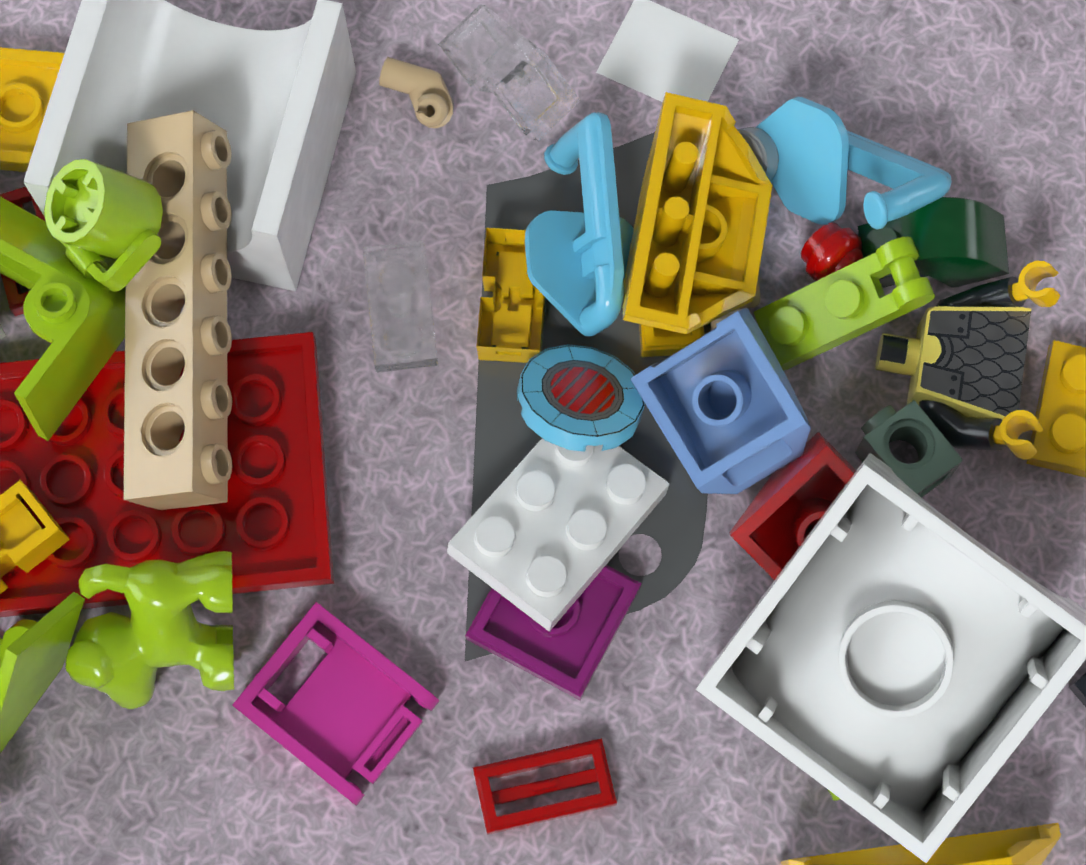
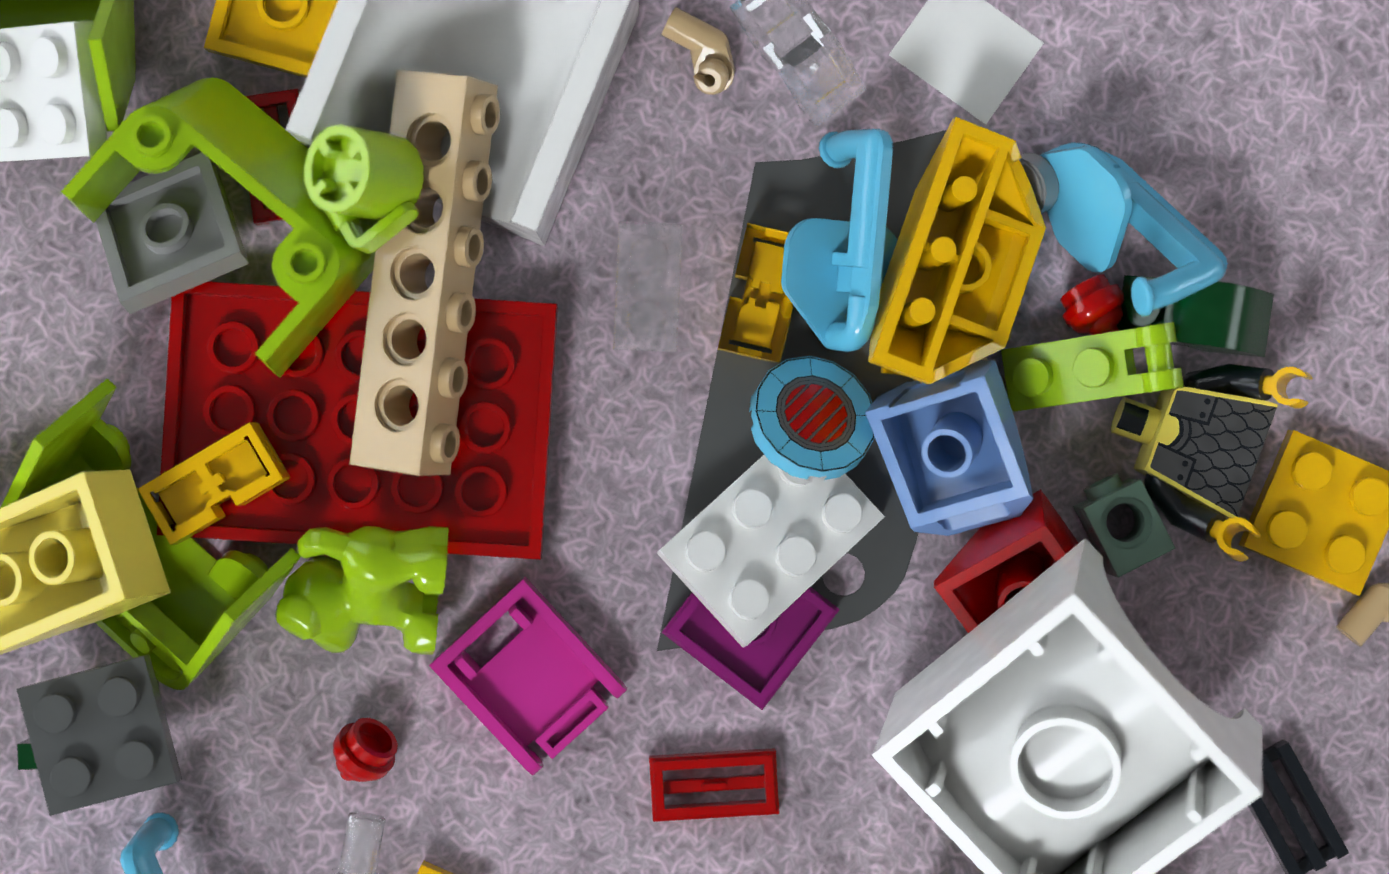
camera: 10 degrees right, 15 degrees up
(176, 807) = (364, 750): none -> red plate

